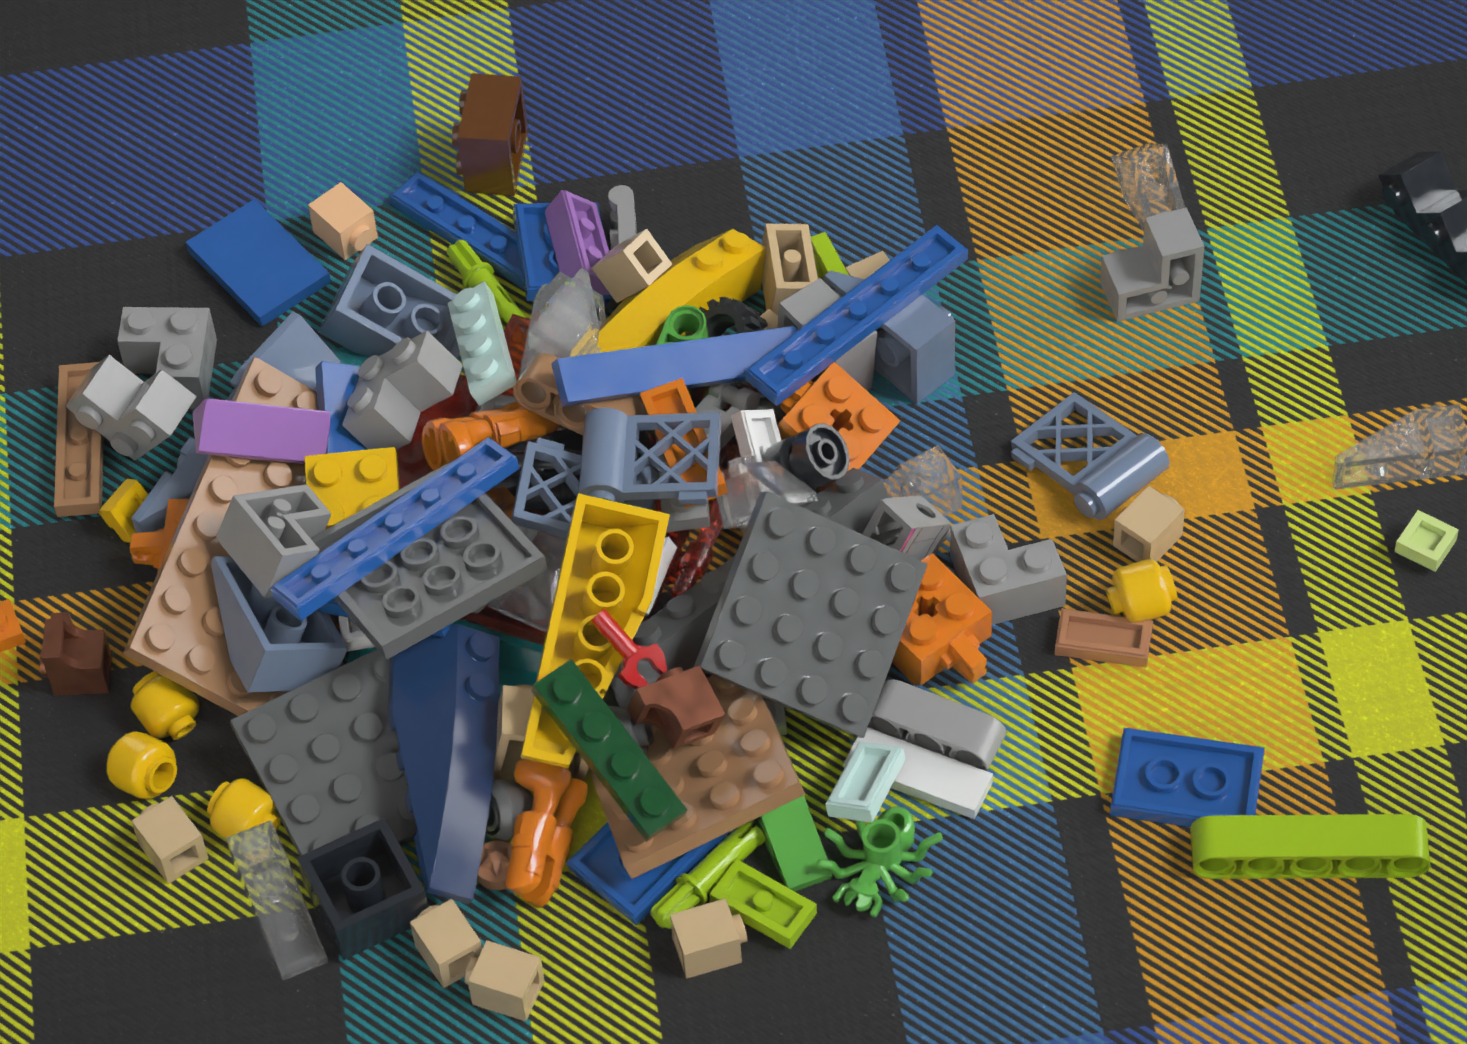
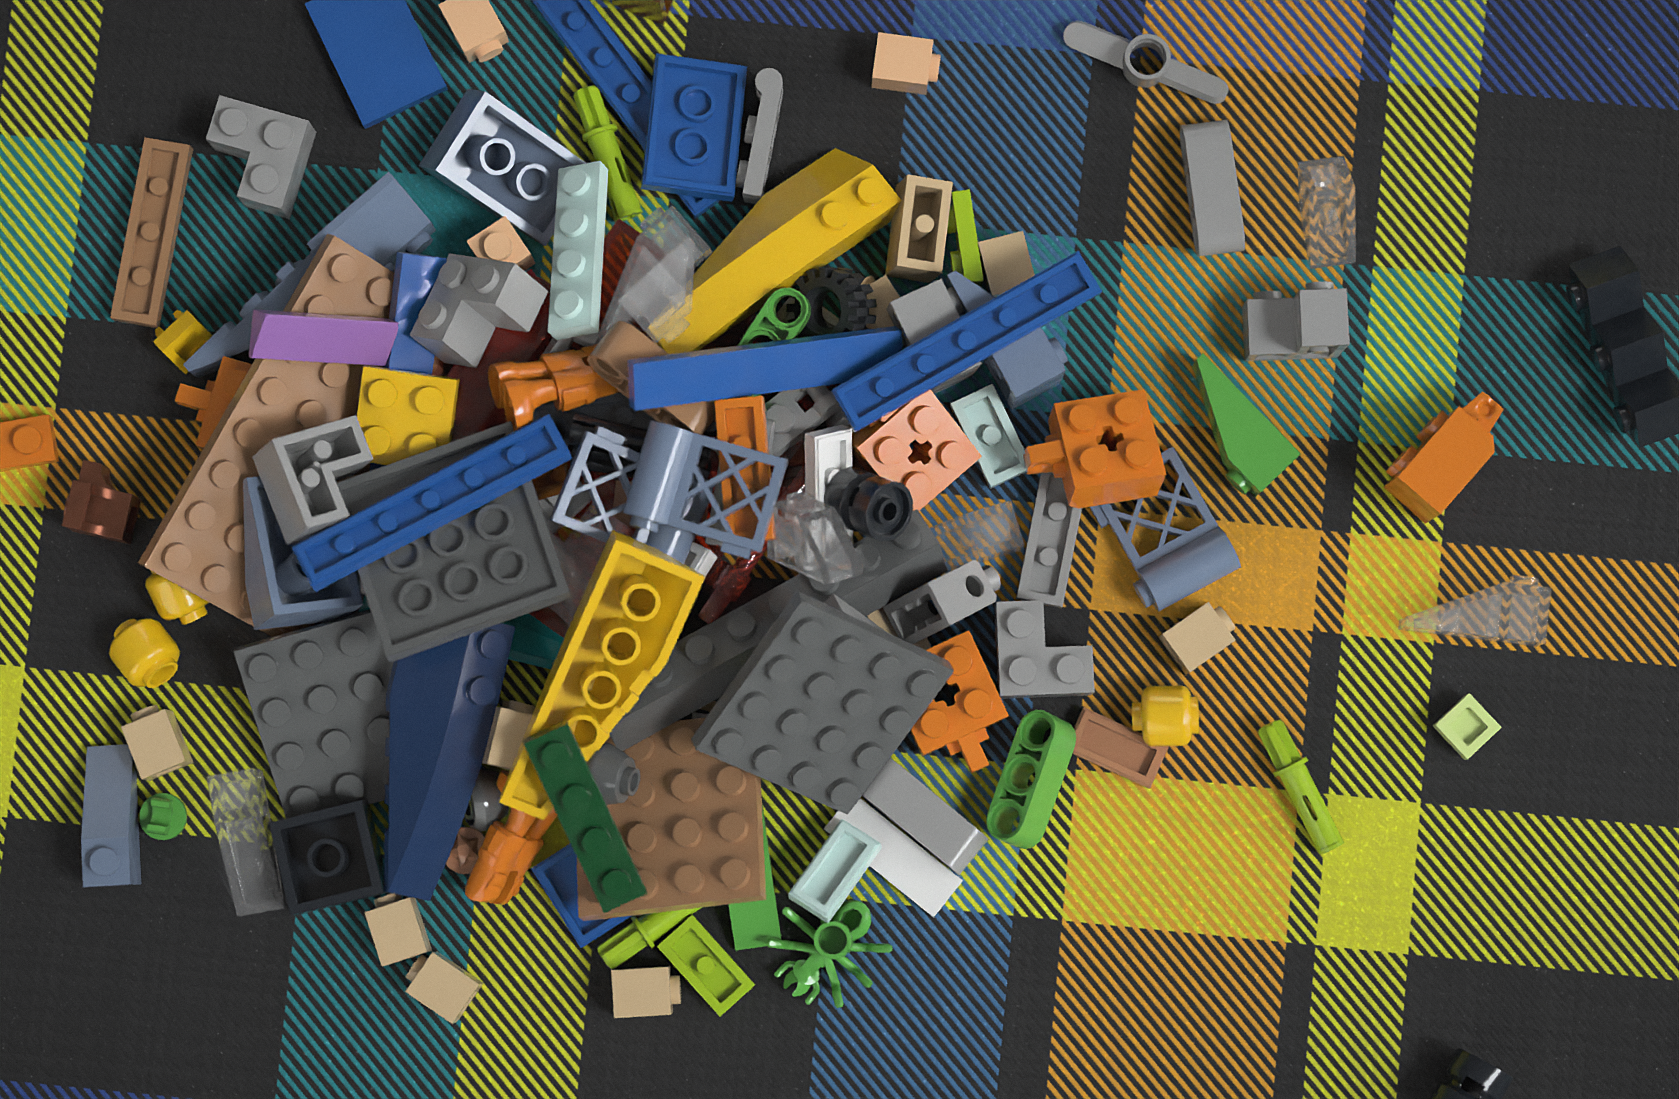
camera: 10 degrees right, 30 degrees up
(128, 410) = (212, 235): light grey brick -> none
(137, 920) = (110, 818): none -> sand blue slope
(188, 903) = (163, 816): none -> bright green plate
(240, 807) = (231, 737): yellow head -> none
(577, 236) = (711, 137): medium lavender slope -> none
(629, 651) = (629, 721): red bar -> none
(631, 265) = (752, 202): tan brick -> none
(679, 706) = (669, 778): copper brick -> none
(738, 167) = (904, 63): none -> light nougat brick
(918, 426) = (992, 434): none -> light aqua plate
(948, 135) = (1117, 52): none -> light grey piece
(986, 473) = (1049, 544): none -> light grey plate
(1010, 393) = (1101, 450): none -> orange hinge
(1031, 670) = (1025, 757): none -> bright green beam
(1042, 195) = (1212, 188): none -> light grey beam
(1135, 364) = (1245, 437): none -> bright green slope
(1184, 778) = (1148, 933): blue tile -> none
(1289, 624) = (1298, 782): none -> lime axle
(1309, 846) = (1239, 1044): lime beam -> none
(1320, 335) = (1446, 460): none -> orange hinge

